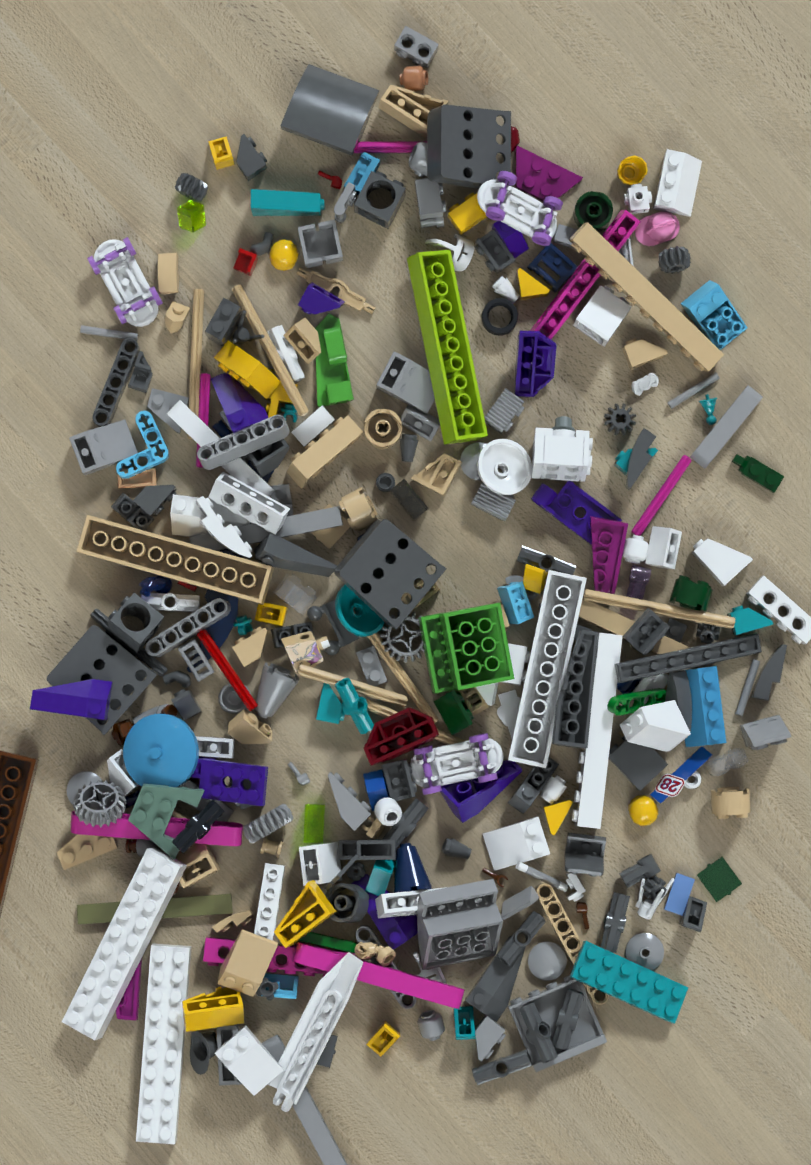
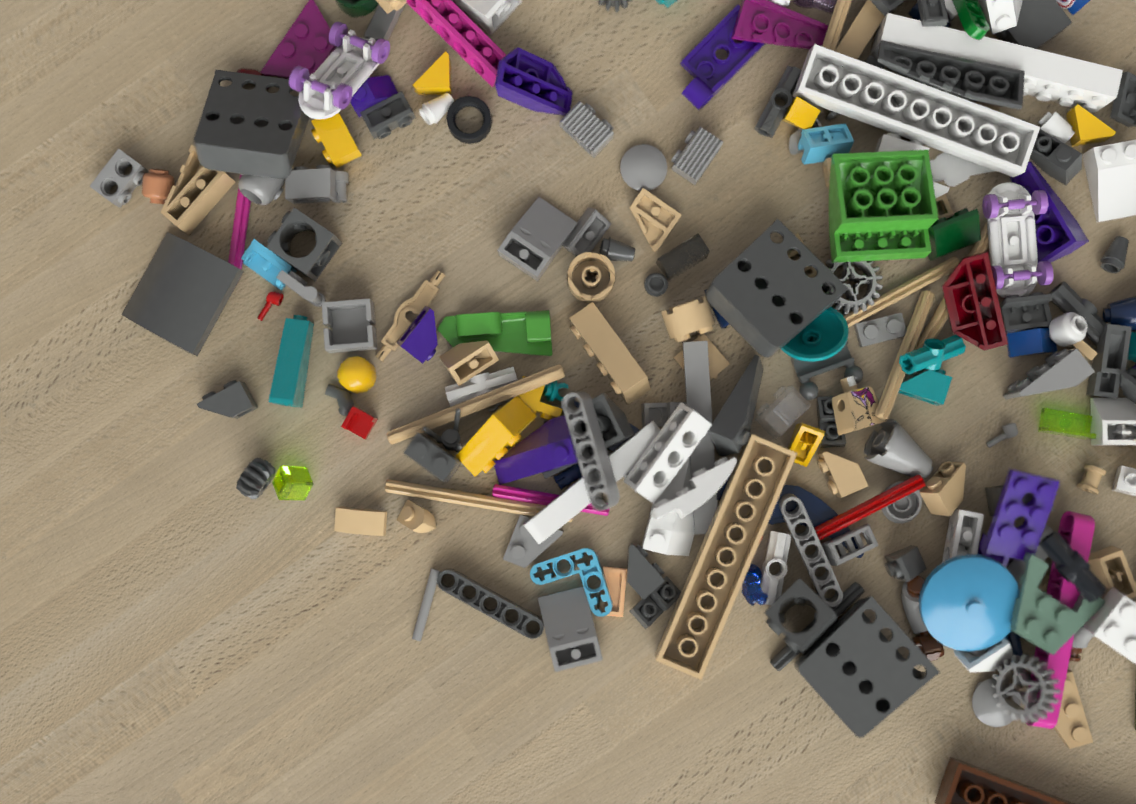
camera: 80 degrees left, 0 degrees up
(80, 699) = (894, 702): dark purple wedge -> none
(126, 282) = (365, 576): white piece -> none
(141, 375) = (484, 570): dark grey slope -> none
(179, 677) = (867, 568): dark grey arm -> none
(221, 153) = (218, 435): yellow slope -> none
(243, 625) = (812, 480): teal plate -> none
(267, 823) = (1075, 488): light grey gear -> none
(313, 425) = (575, 364): white slope -> none
(447, 346) = (499, 185): lime brick -> none
(464, 260) = (396, 166): white helmet -> none
(512, 461) = (657, 125): white dish -> none
(557, 262) = (411, 42): dark blue plate -> none
(561, 452) = (648, 62): white piece -> none
(643, 810) = (1090, 26): yellow hair -> none

